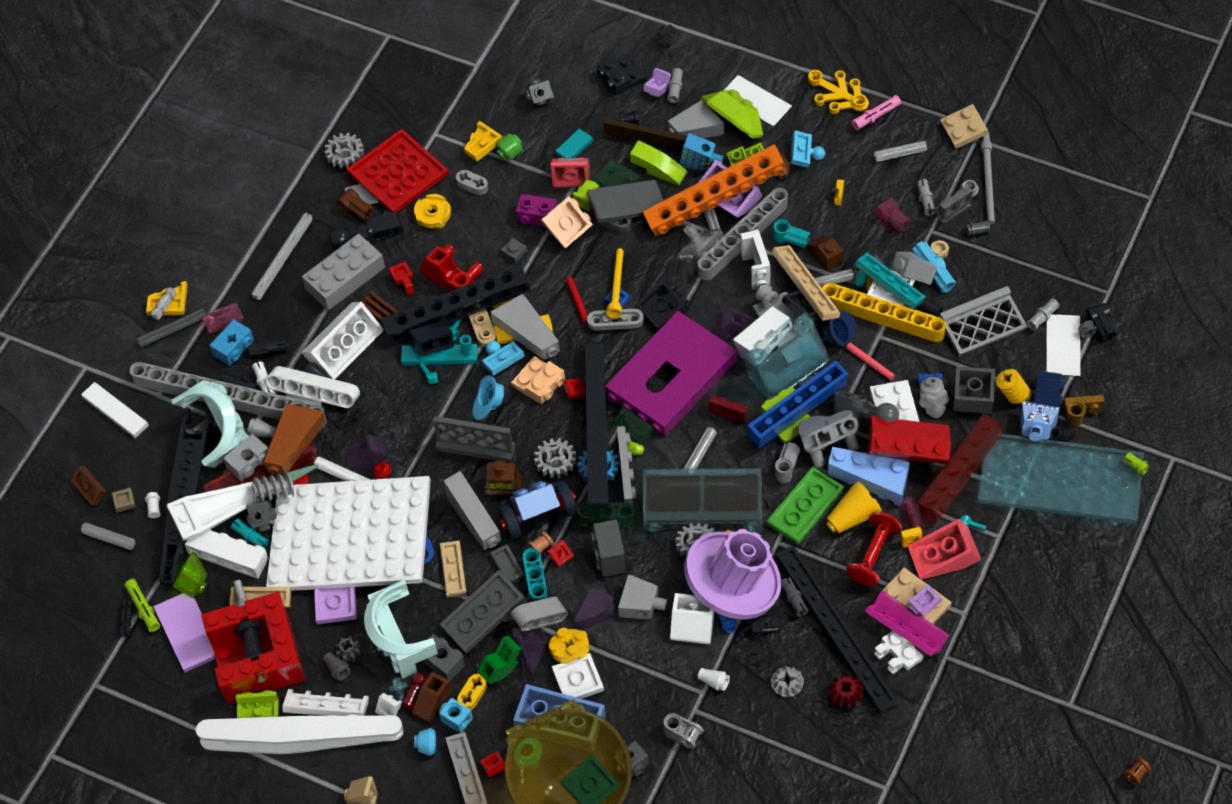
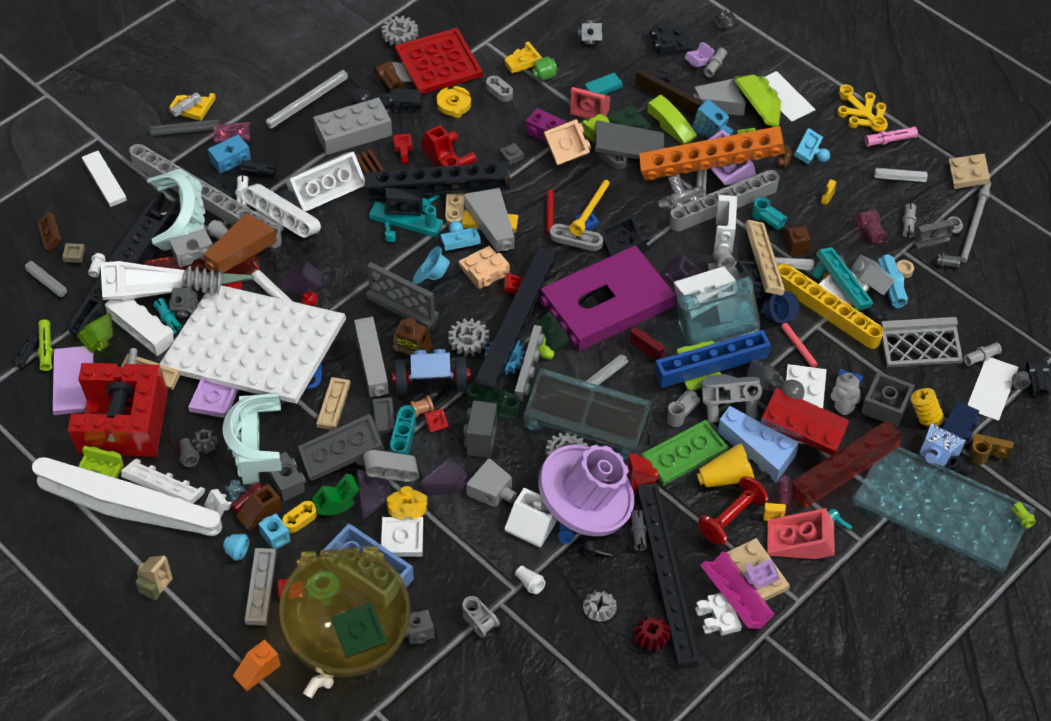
camera: 15 degrees right, 5 degrees down
(776, 538) = (640, 471): none -> red slope

